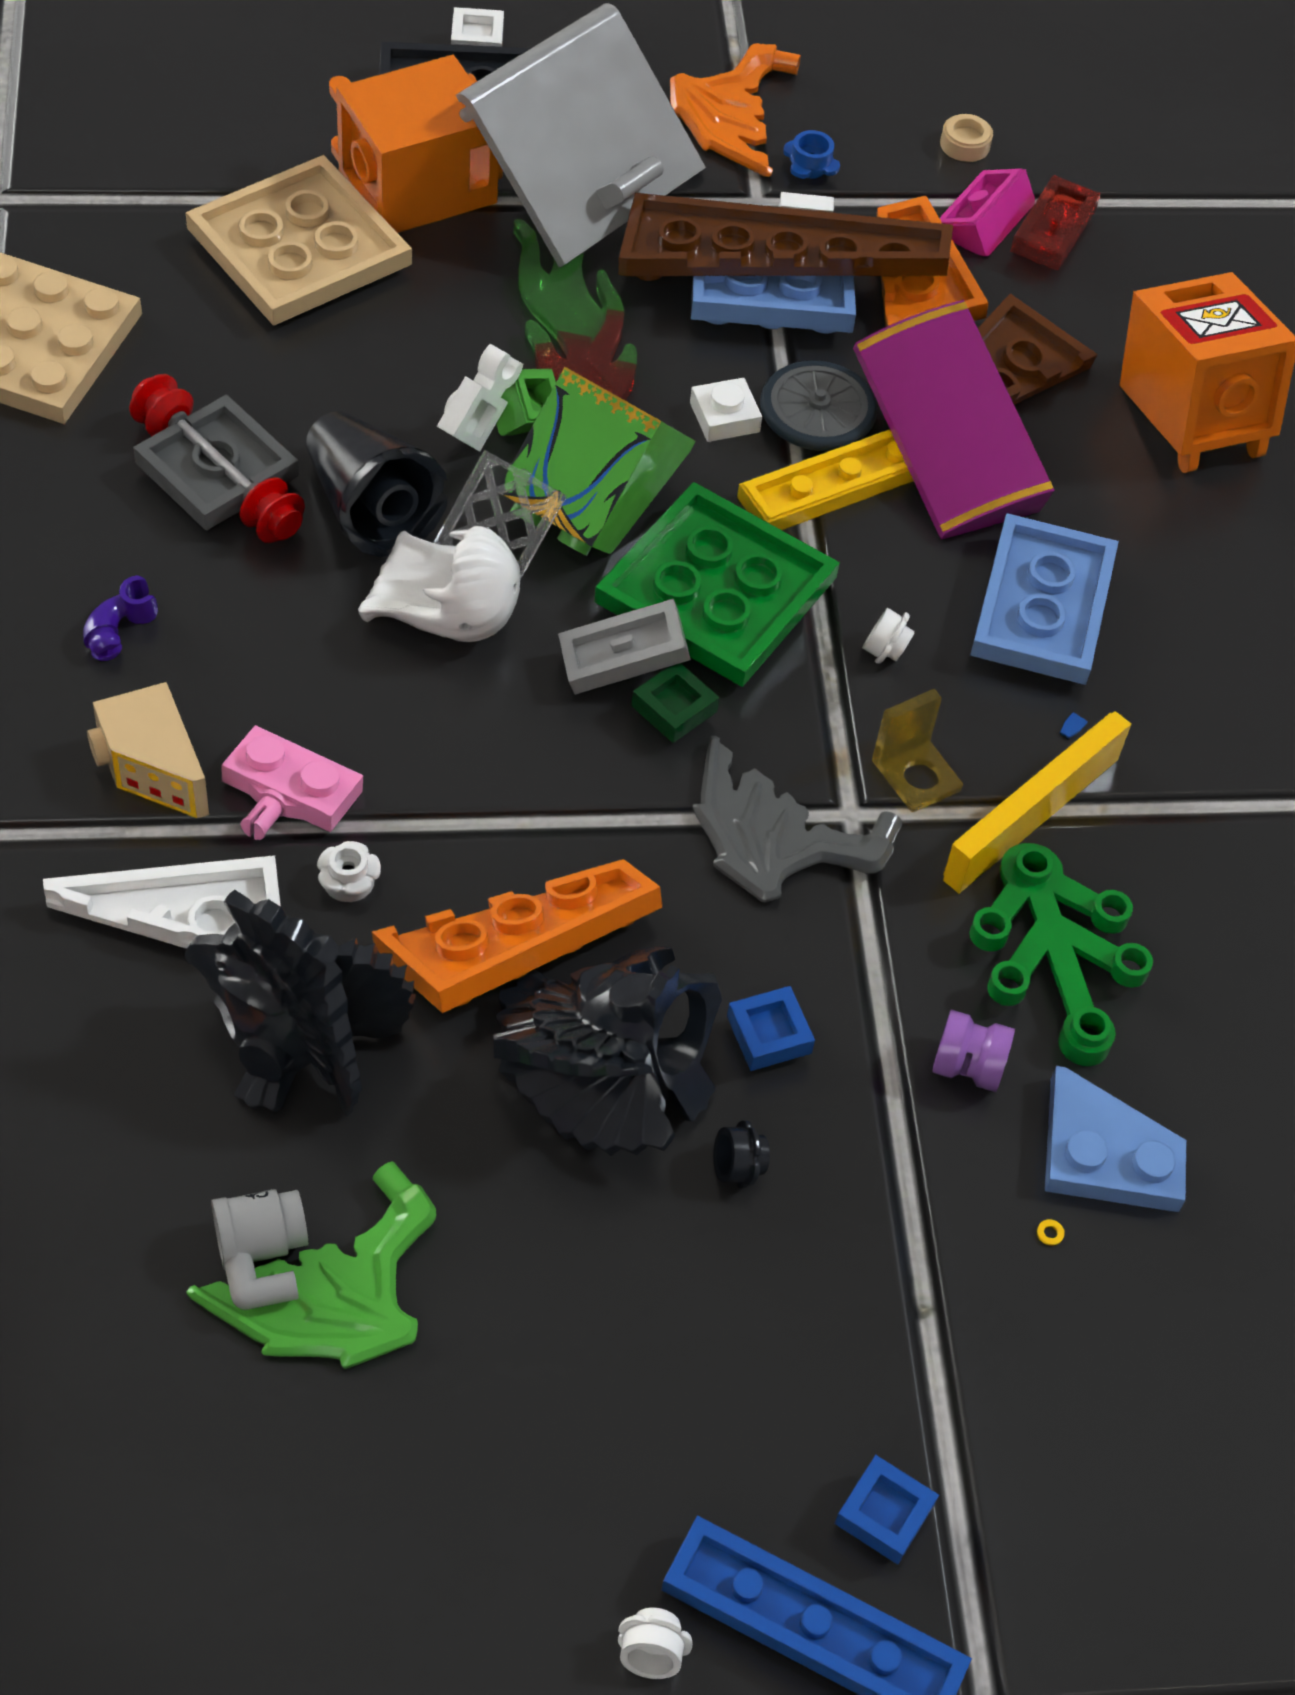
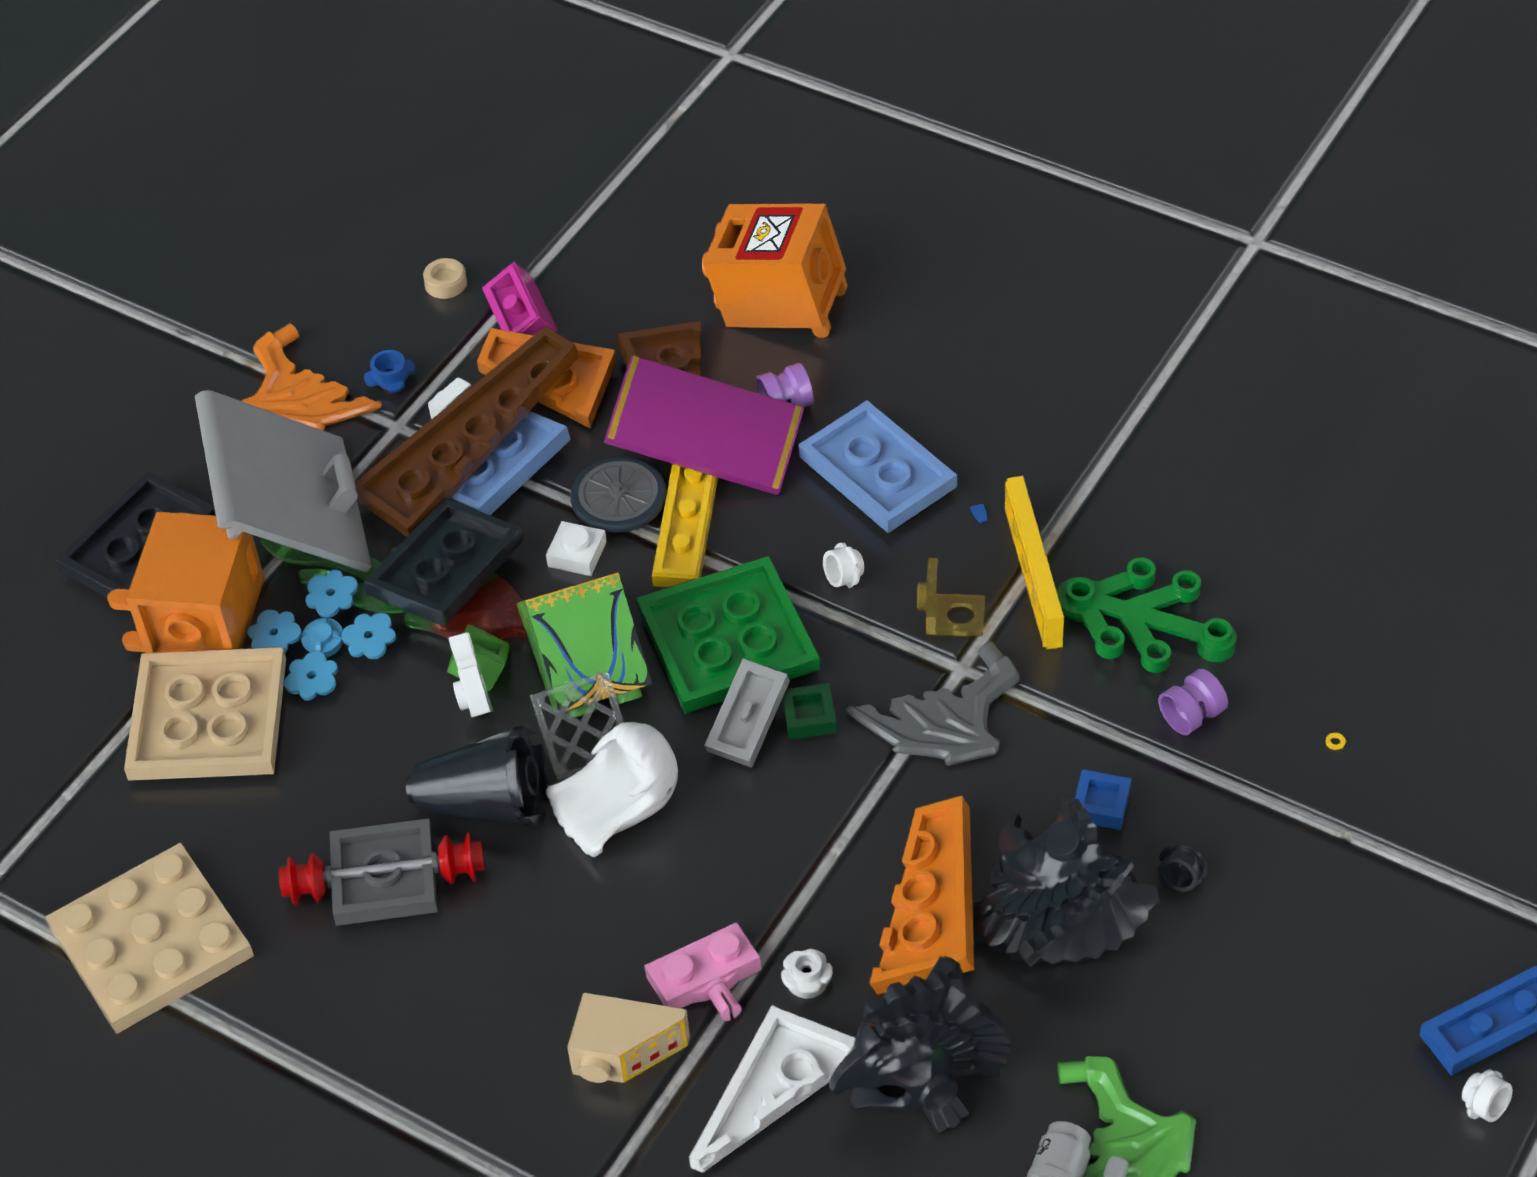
camera: 45 degrees left, 5 degrees down
(101, 626) = (476, 1019): dark purple arm -> none
(457, 275) = (323, 636): none -> dark azure plant
(477, 27) = (92, 496): white plate -> none
(606, 308) = (444, 561): none -> black plate
(886, 1509) = (1473, 926): blue plate -> none
(1055, 222) = (568, 275): clear red plate -> none
(1071, 467) = (789, 386): none -> medium lavender wheel
(1110, 1149) = (1300, 676): medium blue wing -> none

